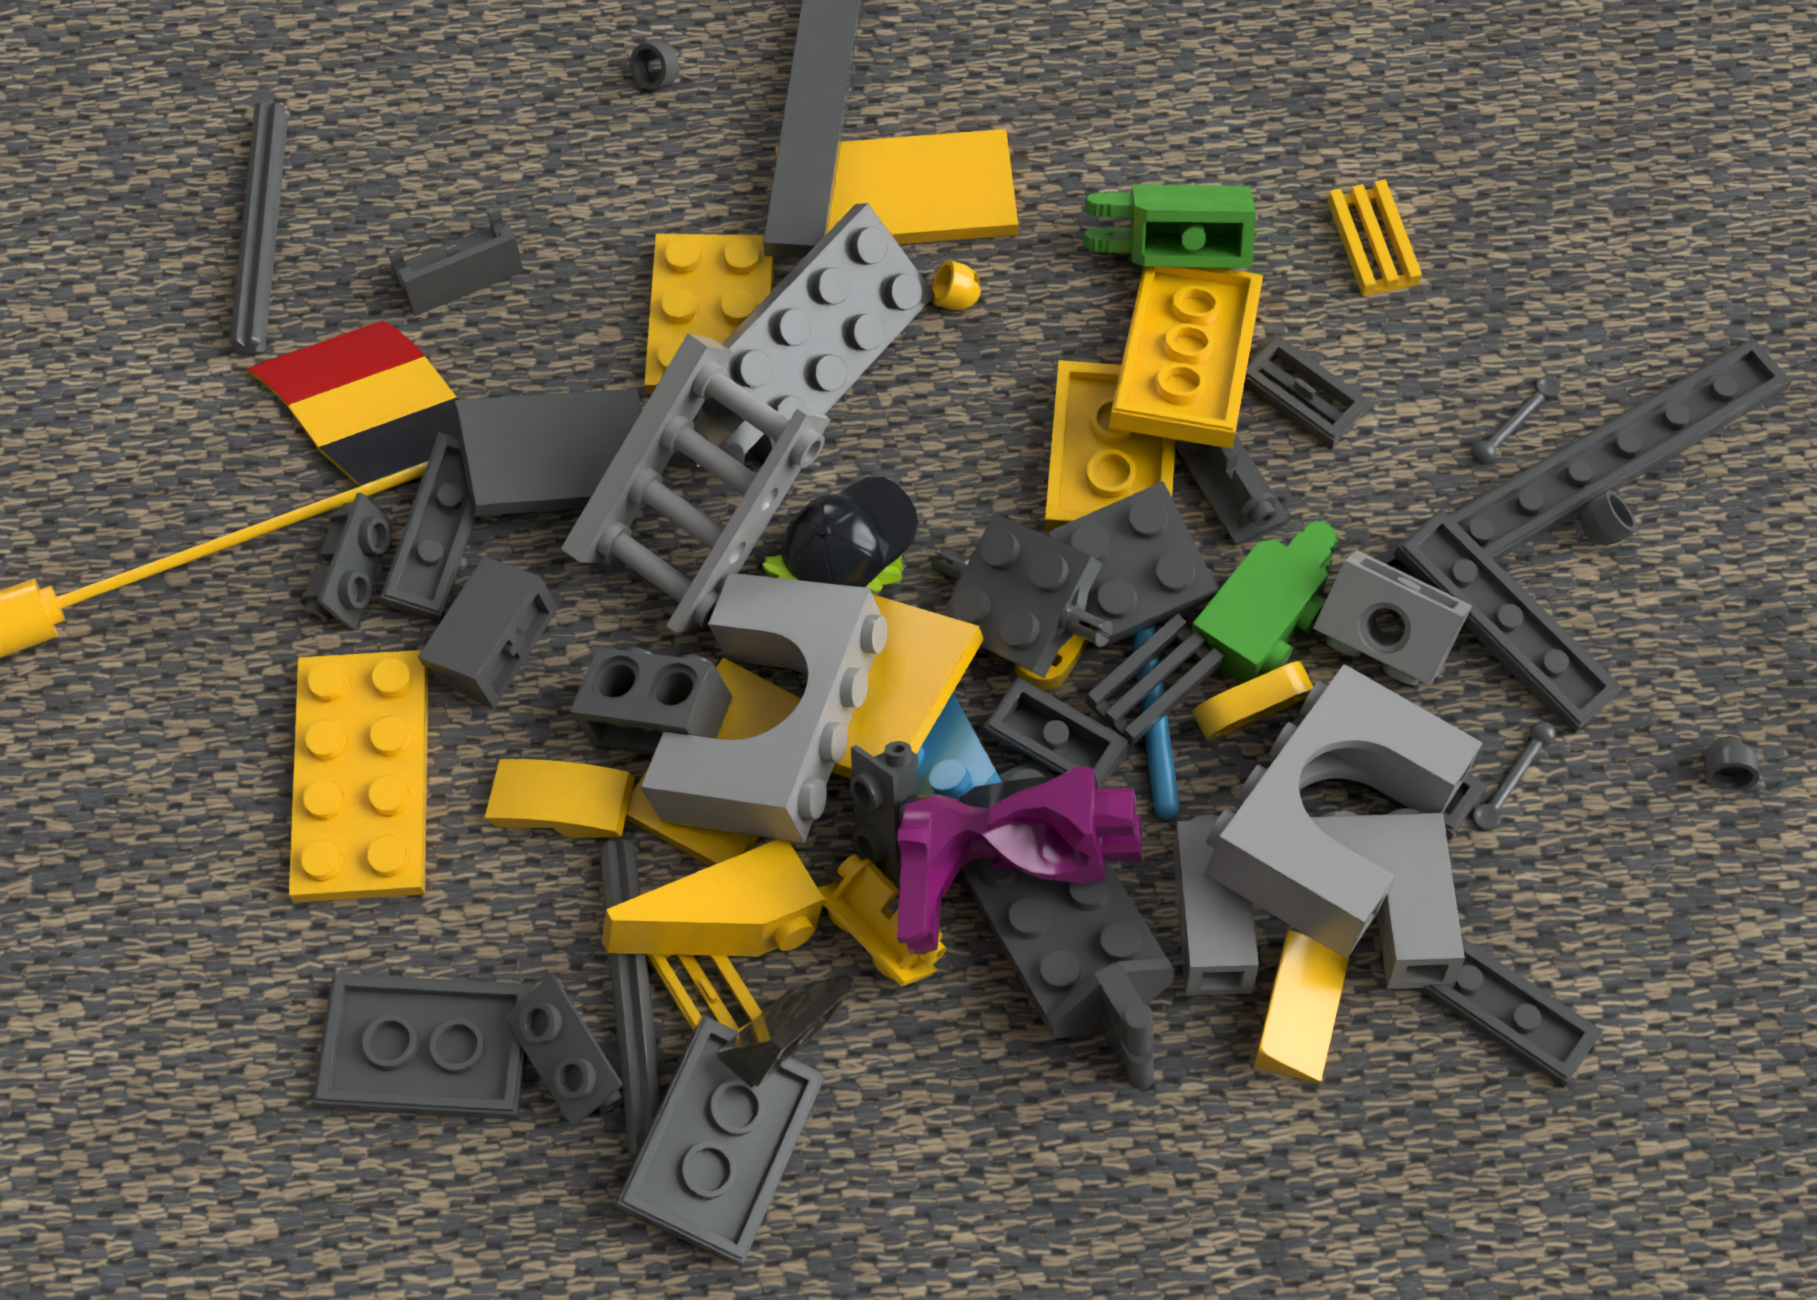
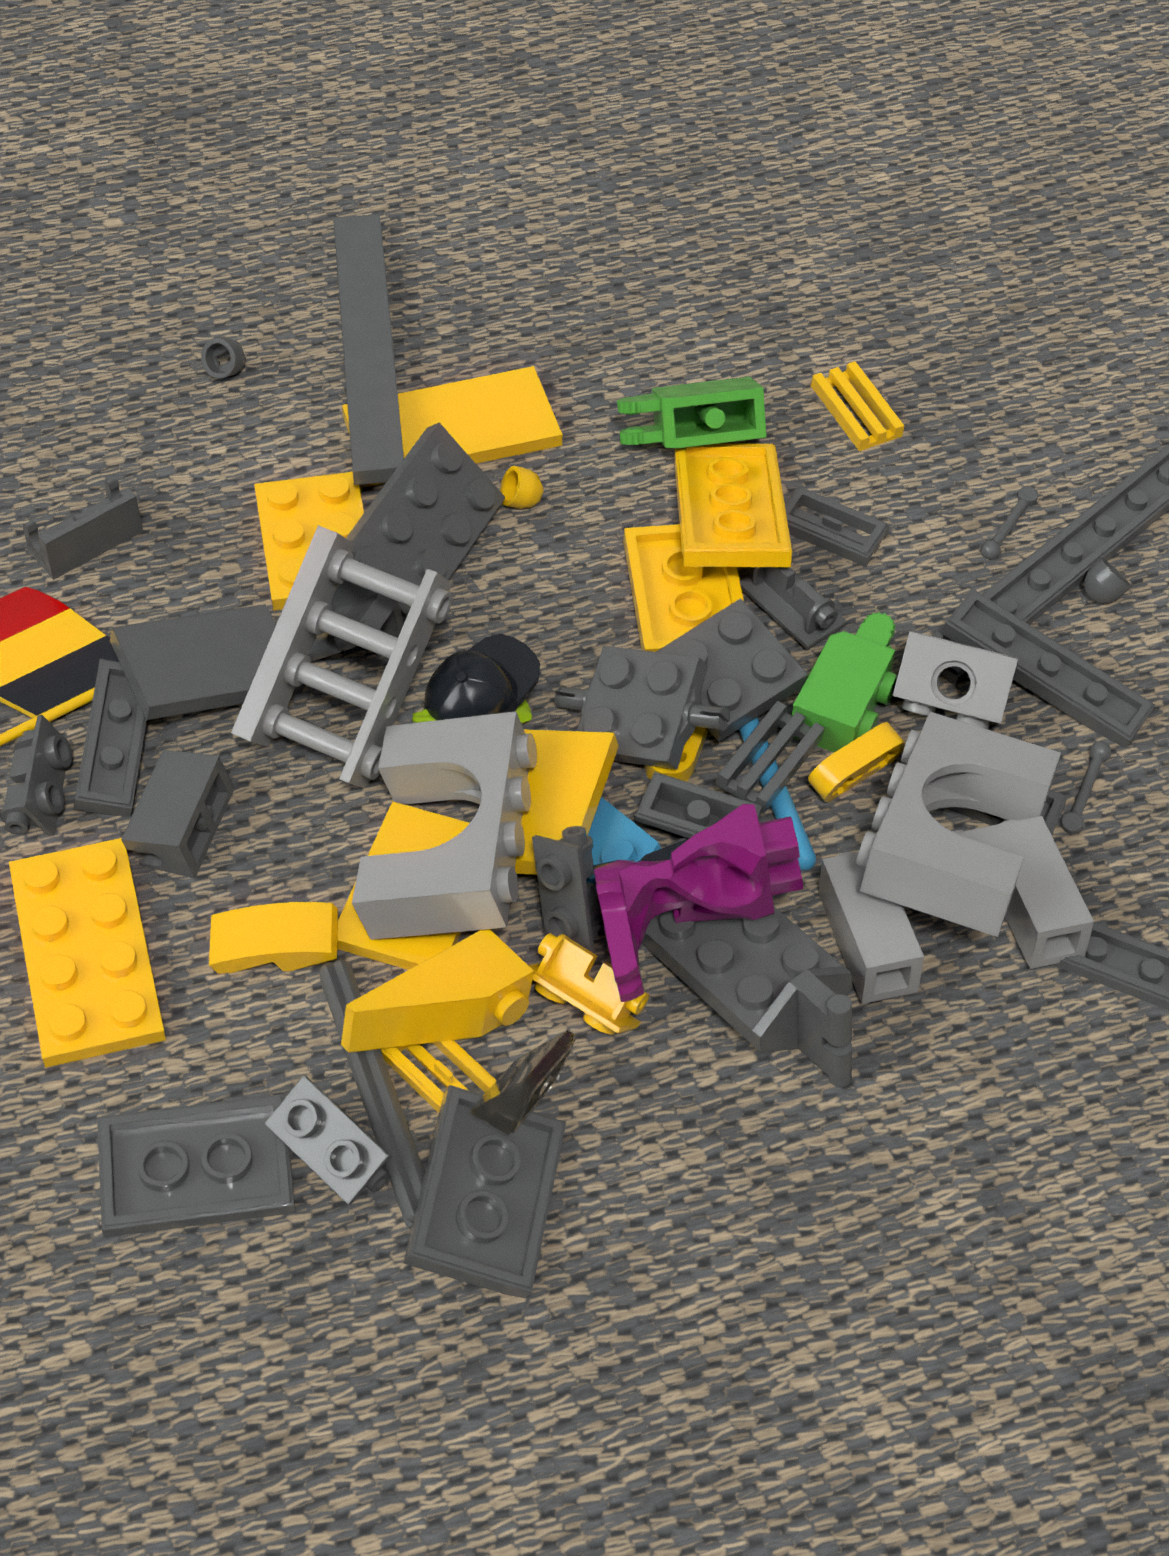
camera: 15 degrees left, 10 degrees down
(639, 695) = (323, 840): dark grey brick -> none
(1301, 1008) = (962, 996): yellow slope -> none

